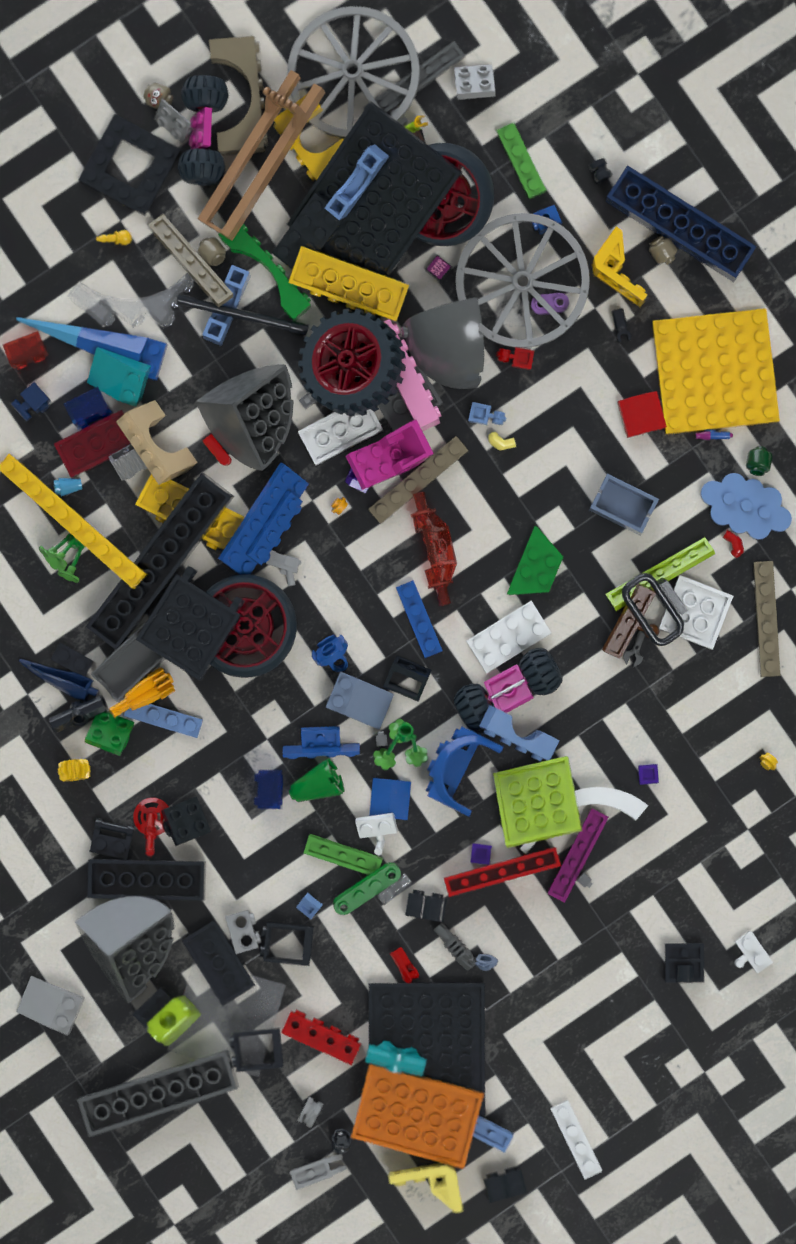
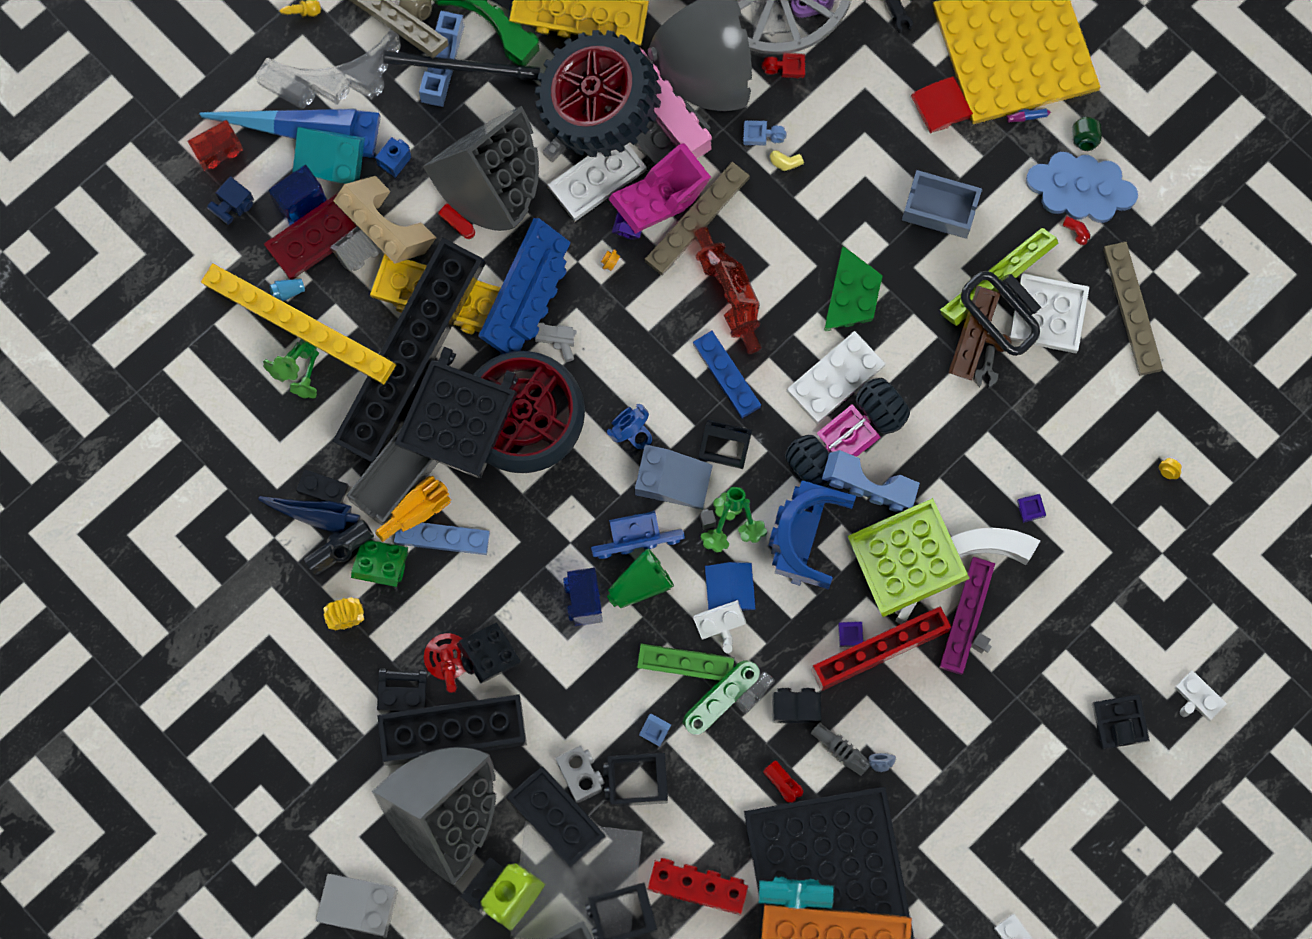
camera: 15 degrees left, 10 degrees down
(173, 384) = (394, 156): none -> blue brick

